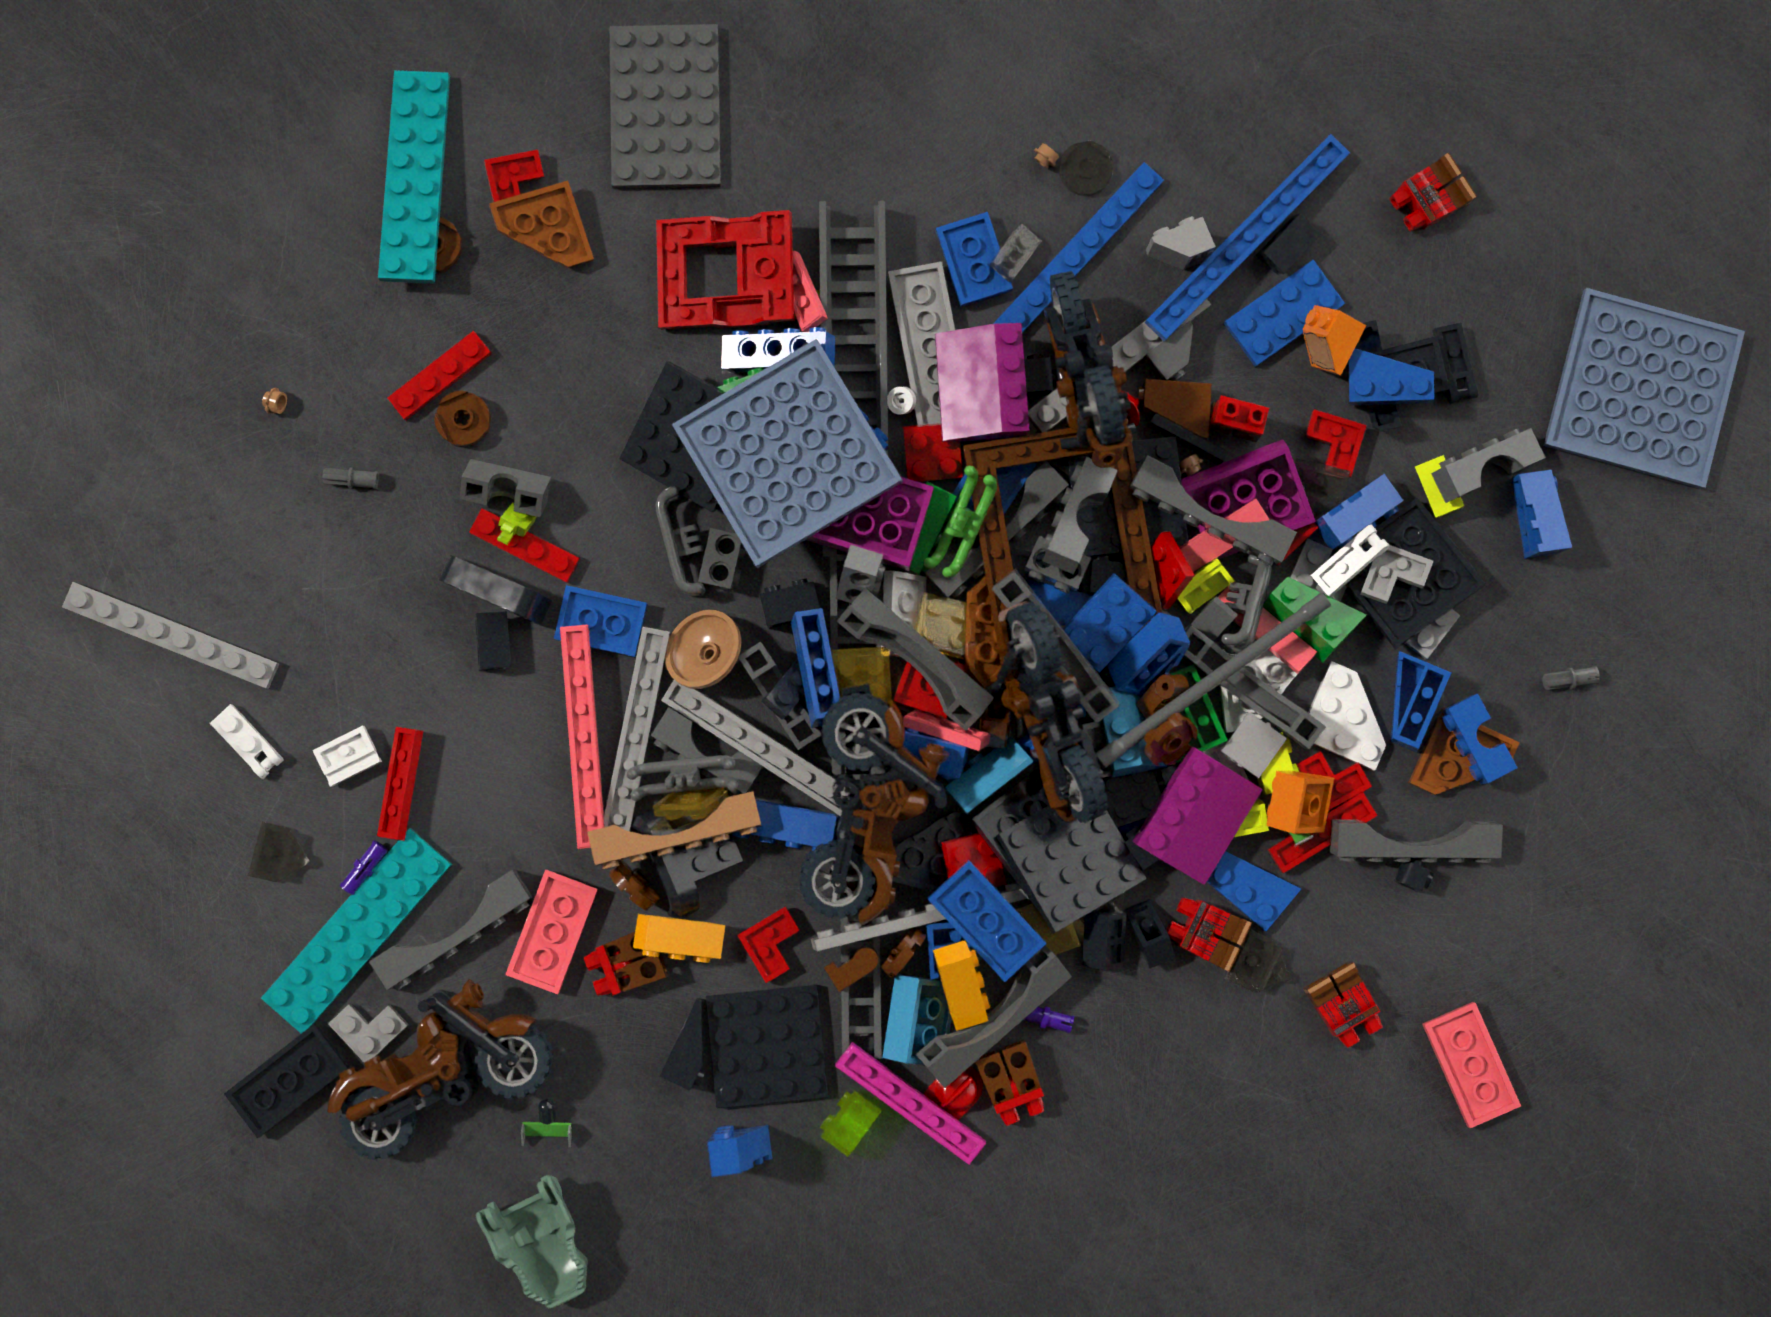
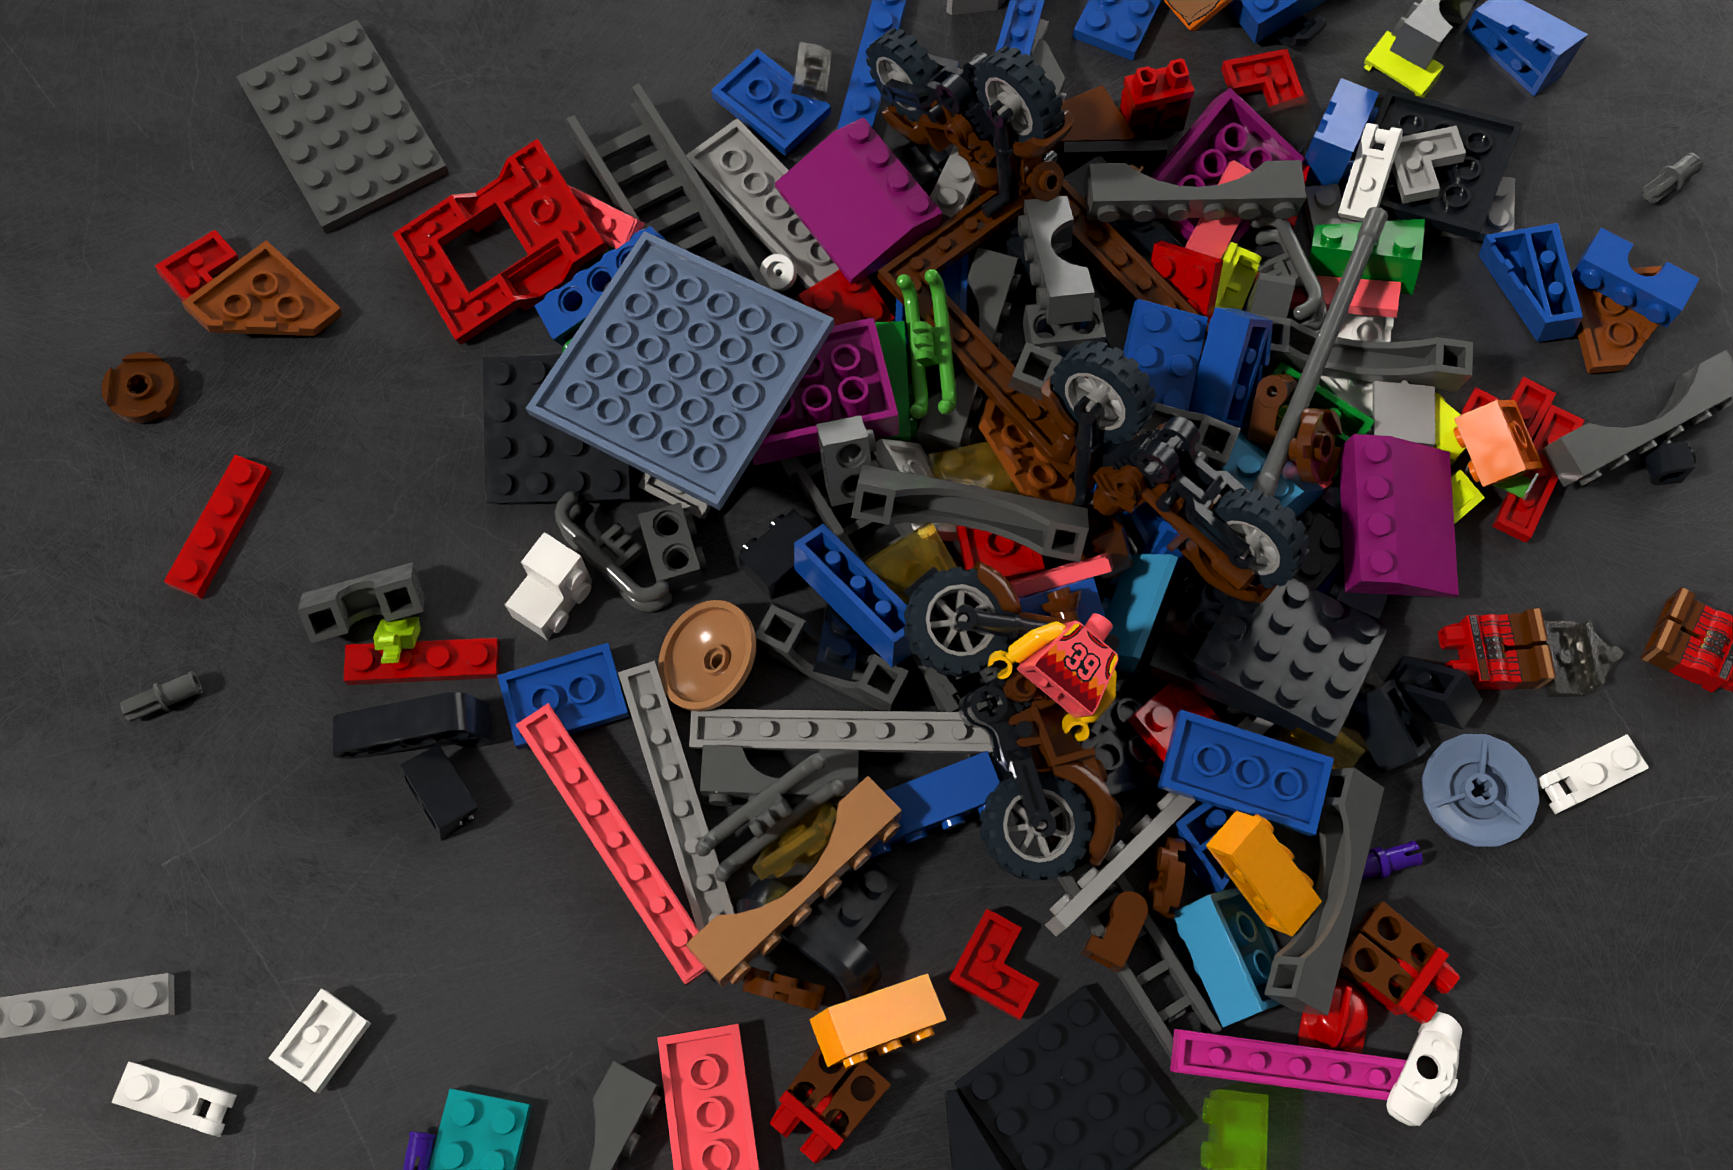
camera: 25 degrees left, 15 degrees down
(274, 401) = (20, 658): medium nougat plate -> none
(400, 783) = (408, 1037): red plate -> none
(414, 177) = (81, 331): teal plate -> none
(469, 404) = (275, 576): reddish brown plate -> none
(627, 546) = (551, 589): none -> white brick
(903, 802) = (1069, 667): none -> torso
(971, 1162) = (1415, 1096): none -> white piece
(1151, 1026) = (1508, 785): none -> sand blue piece
(1216, 1041) = (1592, 773): none -> white plate
(1252, 890) = (1509, 579): blue wing -> none
(1348, 718) = (1499, 352): white plate -> none

